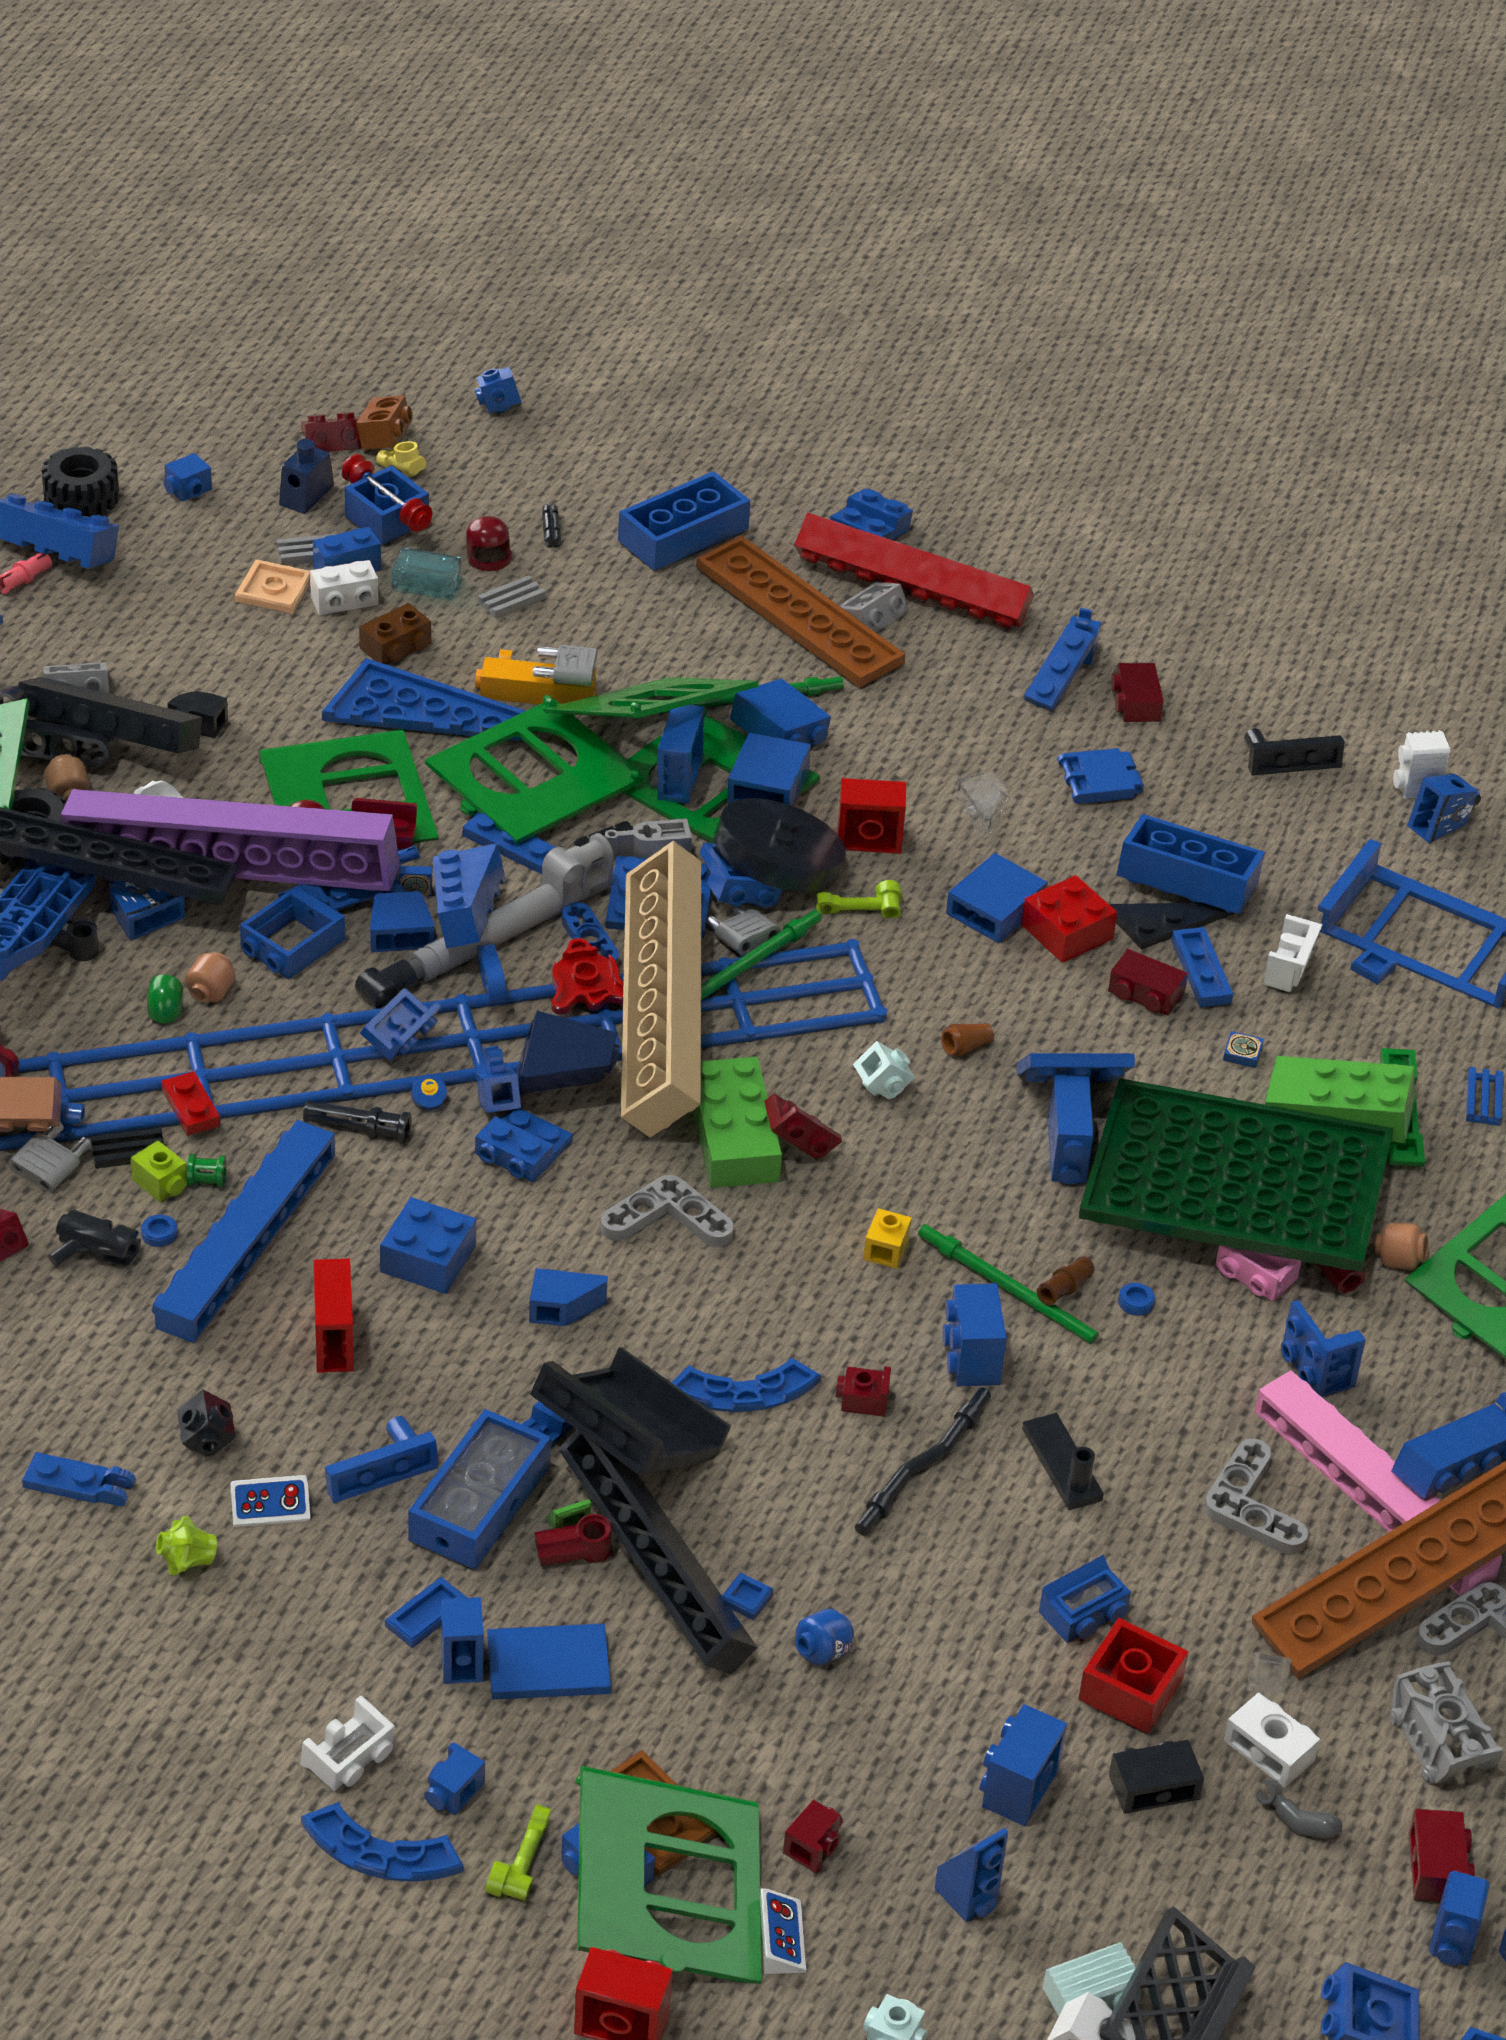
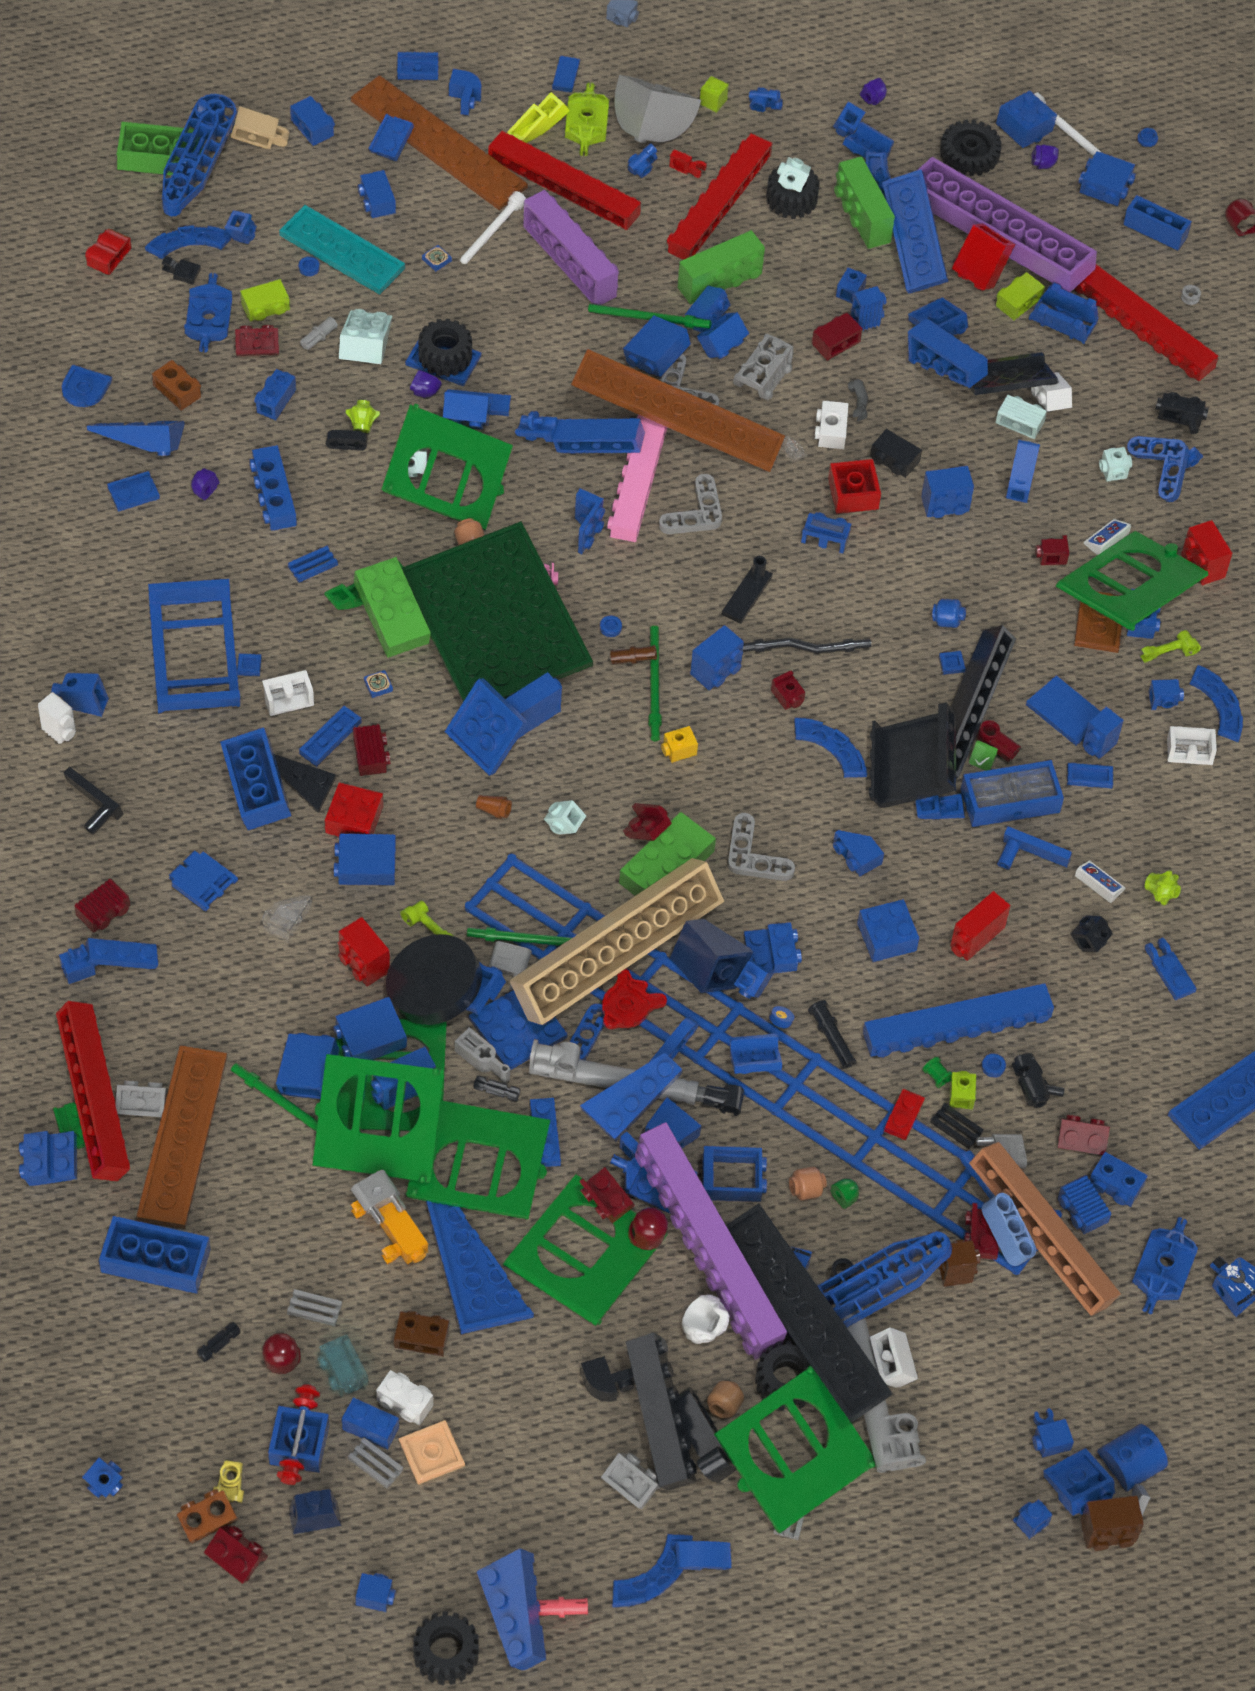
camera: 130 degrees left, 15 degrees up
(1274, 1926) = (945, 354): none -> blue wedge

